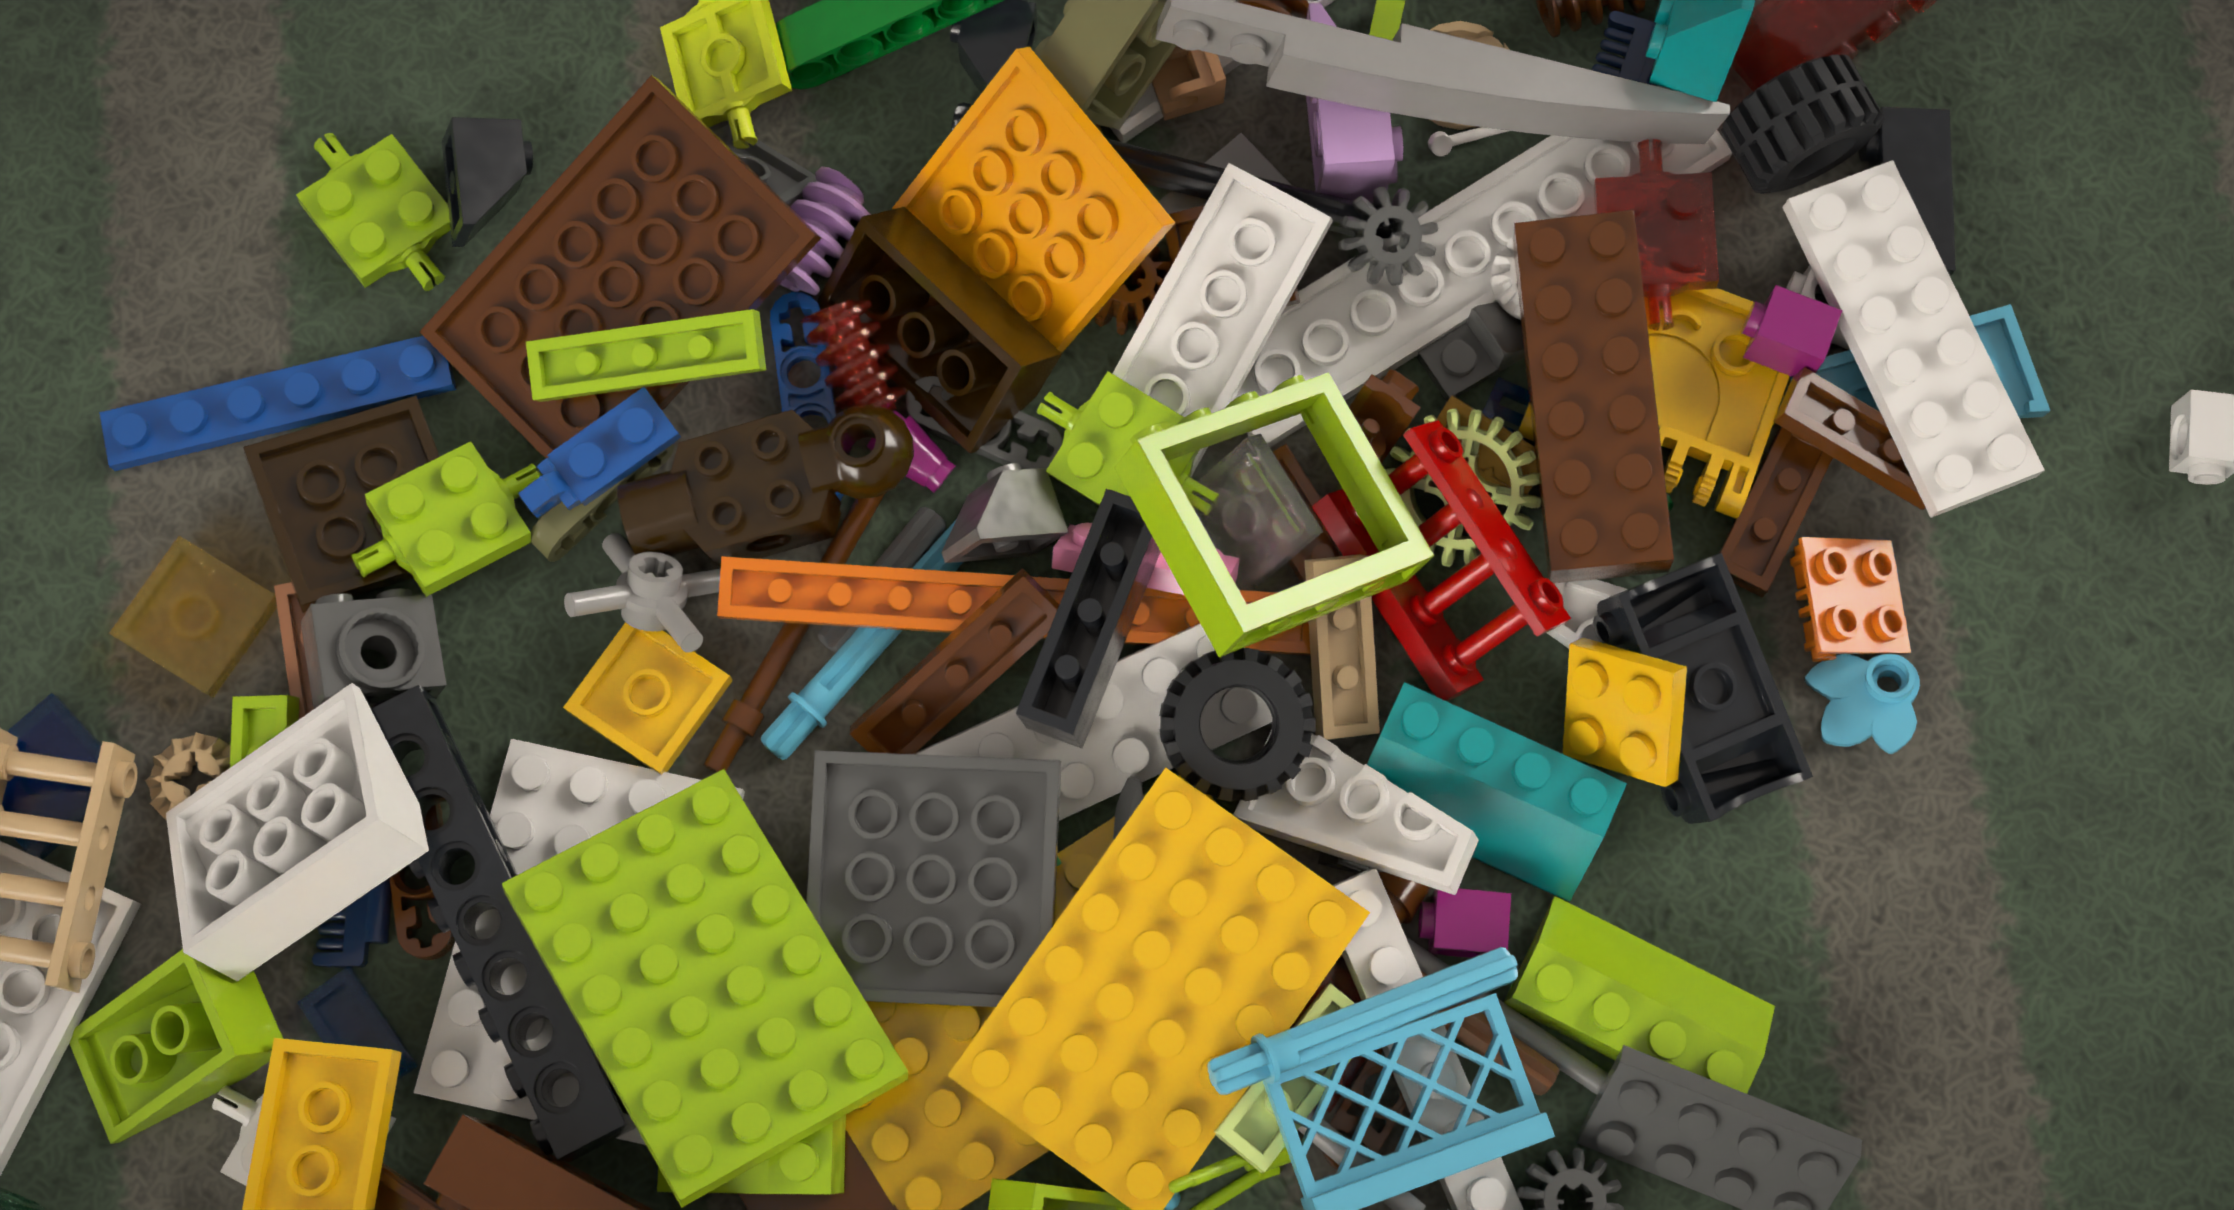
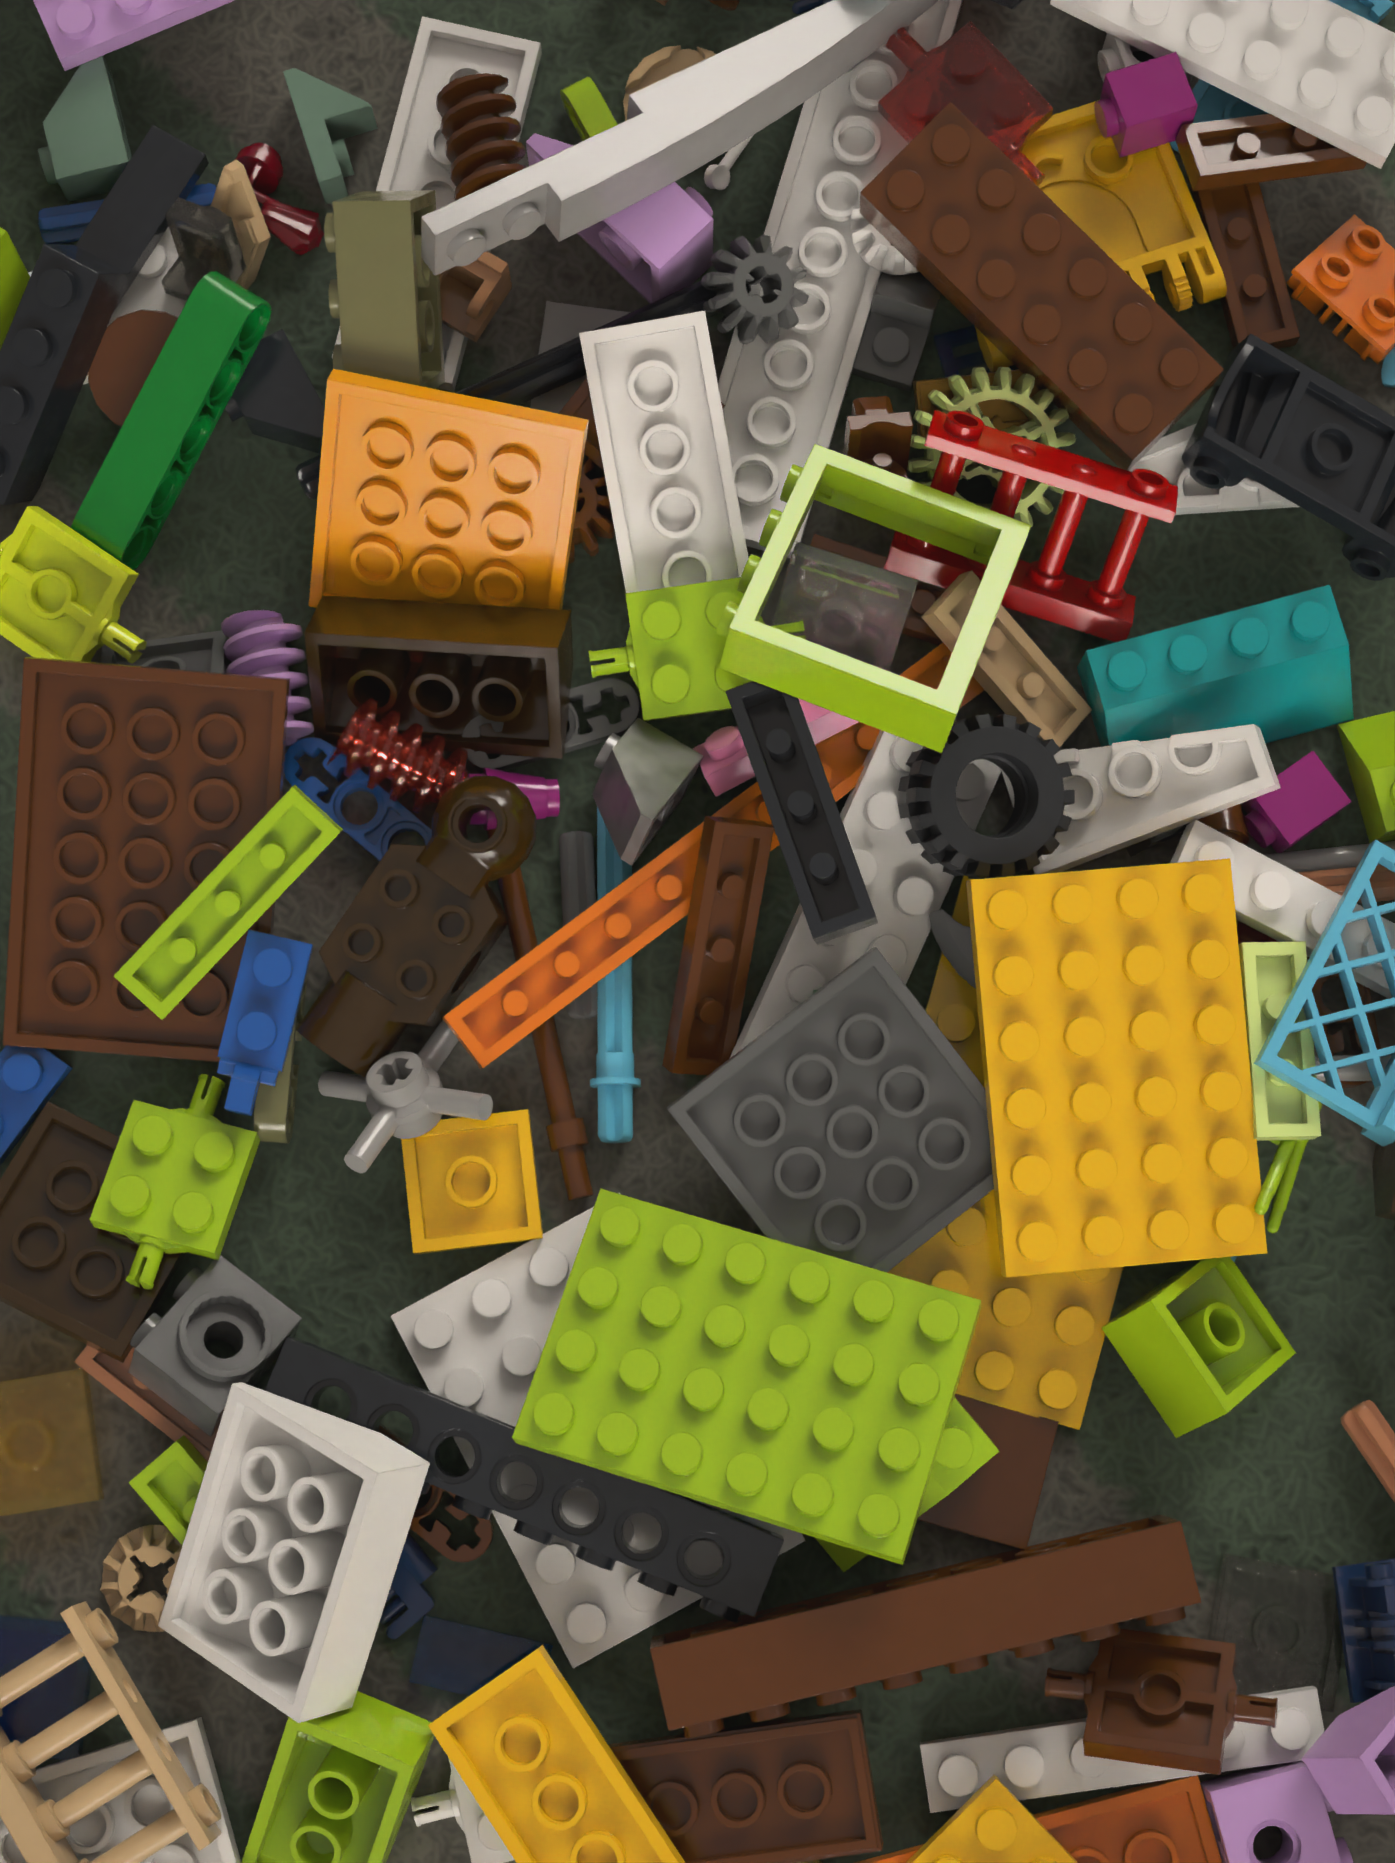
camera: 40 degrees left, 5 degrees up
(1360, 1021) = (1256, 1038): medium azure axle -> none
(1624, 711) = (1278, 527): yellow plate -> none

